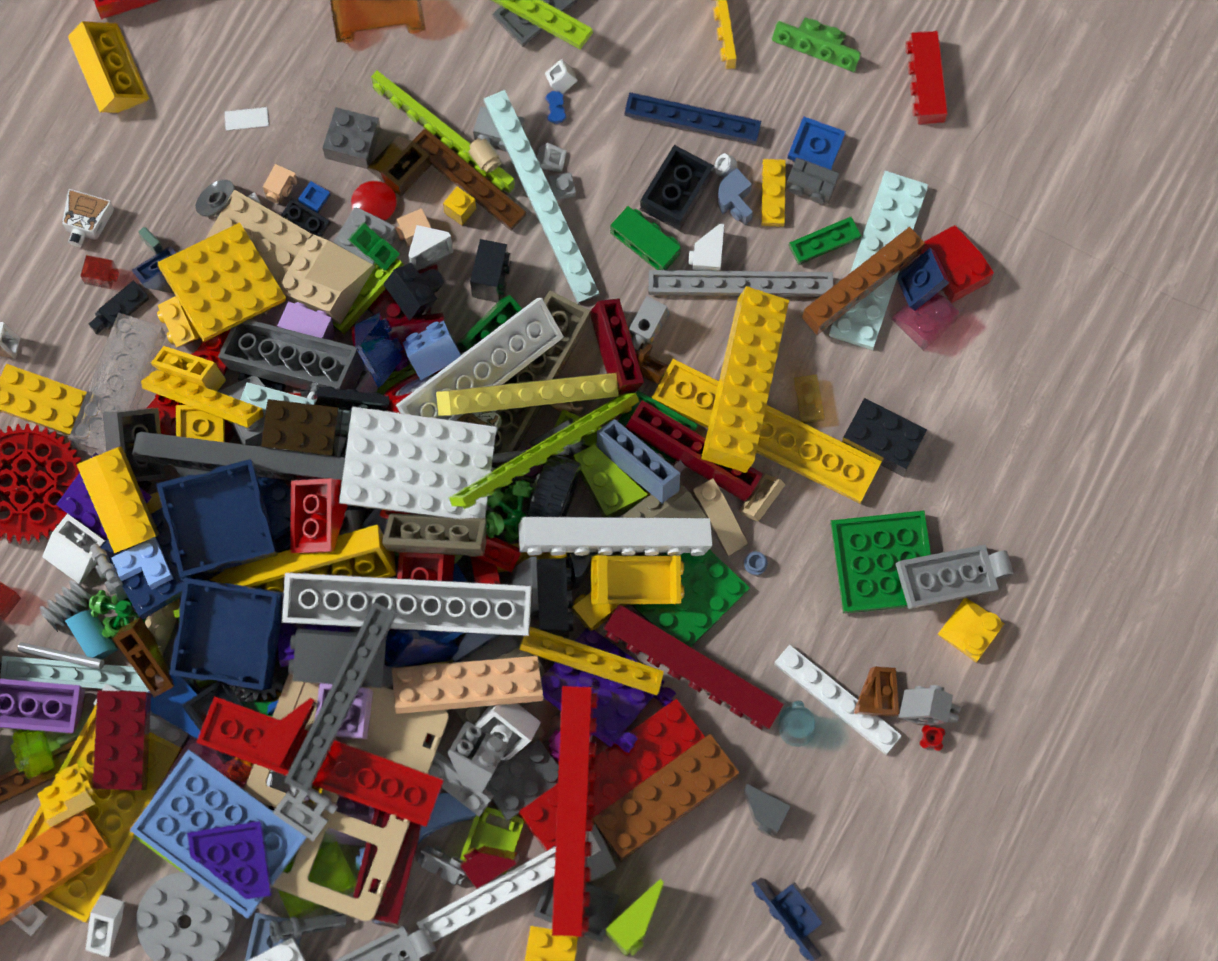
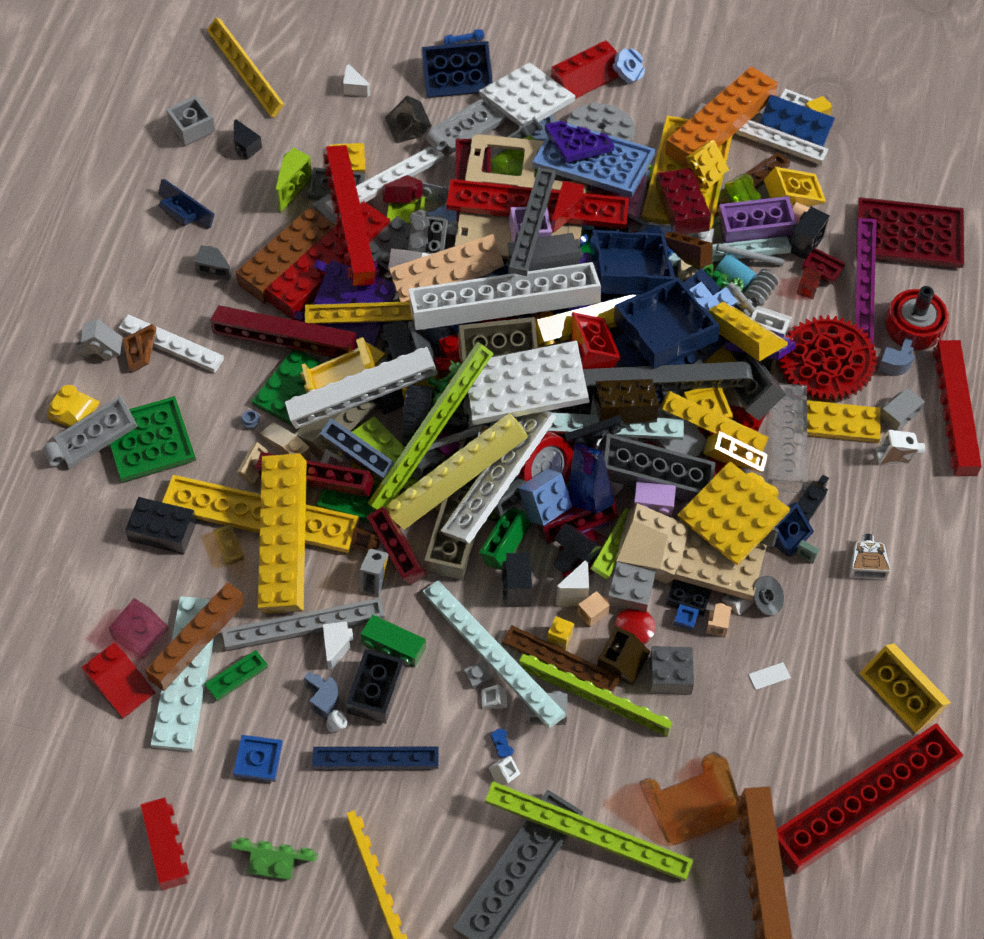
camera: 165 degrees right, 15 degrees down
(99, 272) = (838, 519): clear red brick -> none
(104, 925) = (653, 119): white slope -> none
(301, 816) = (530, 170): light grey plate -> none
(373, 246) = (617, 569): green slope -> none
(484, 155) = (550, 667): tan brick -> none
(773, 192) = (290, 710): yellow plate -> none
(797, 725) = (197, 318): clear light blue hat -> none
(812, 181) = (256, 722): dark grey brick -> none
(922, 279) = (142, 647): dark blue plate -> none

